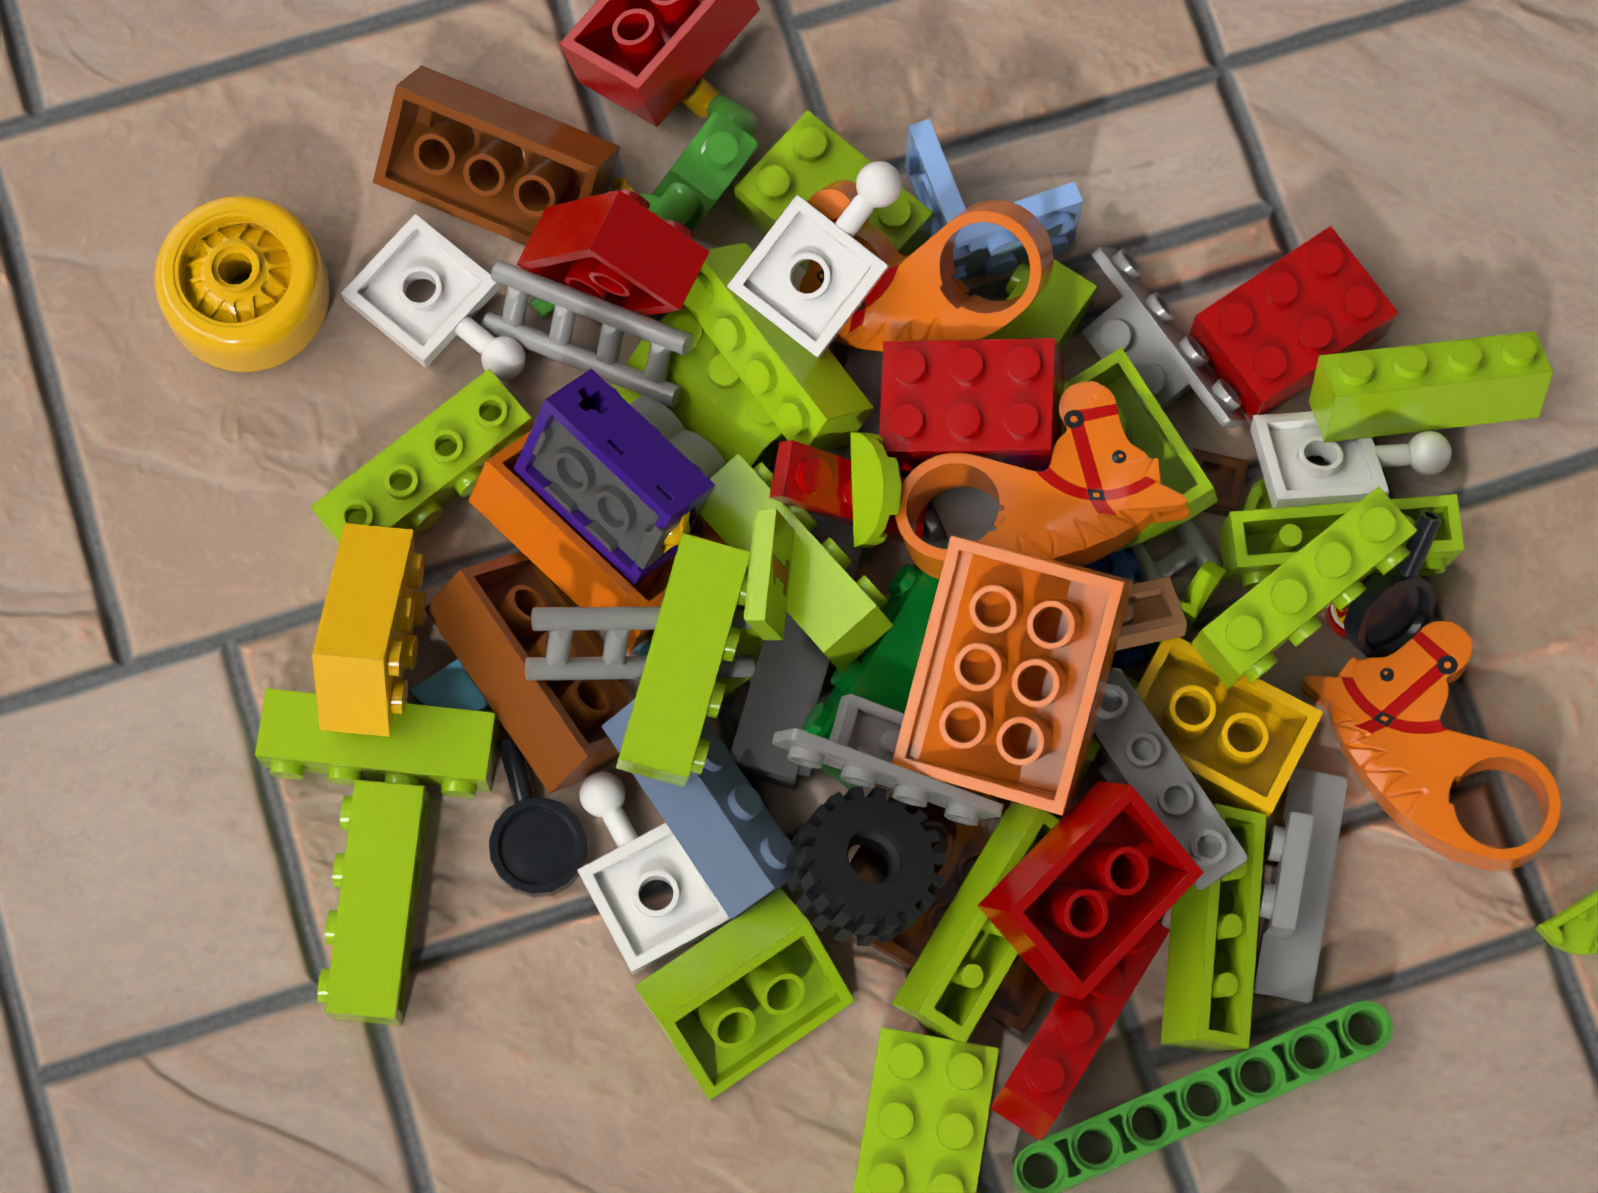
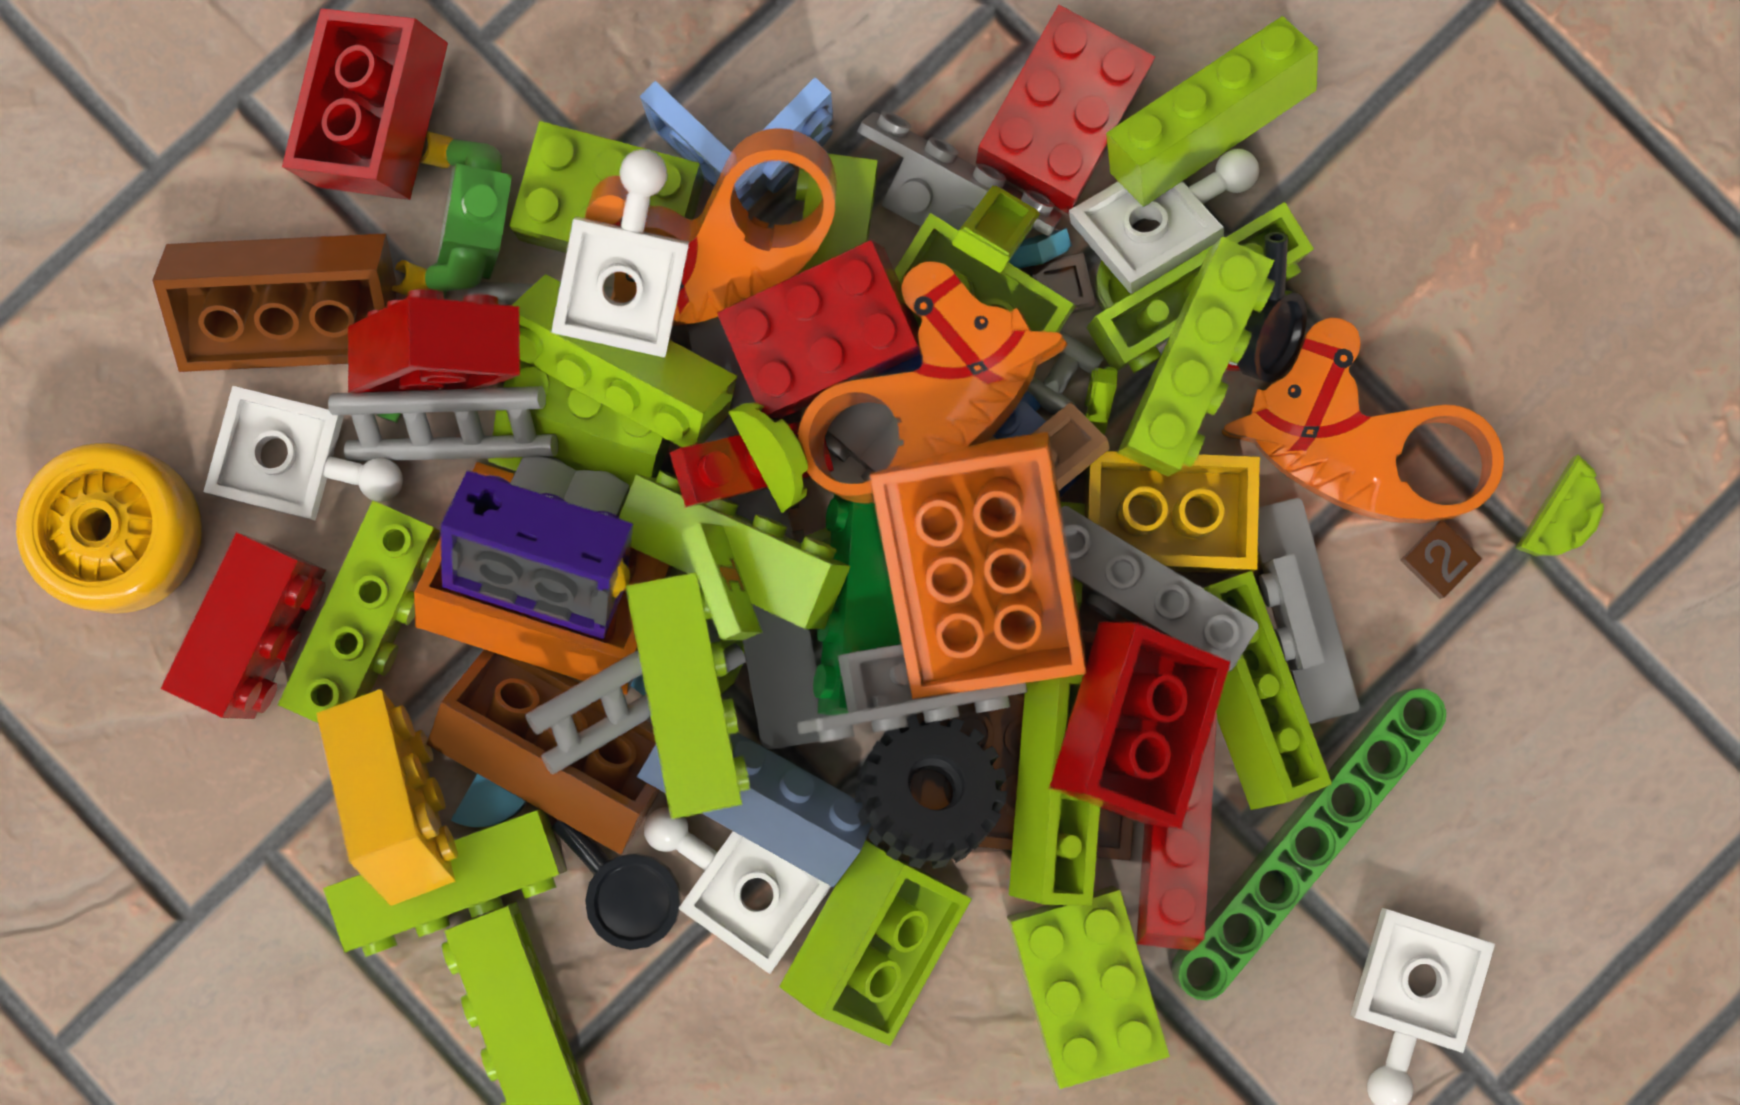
camera: 25 degrees left, 10 degrees up
(318, 425) = (245, 629): none -> red brick
(1175, 390) = (996, 228): none -> lime tile
(1210, 438) = (1041, 249): none -> medium azure tile
(1456, 902) = (1441, 559): none -> reddish brown tile

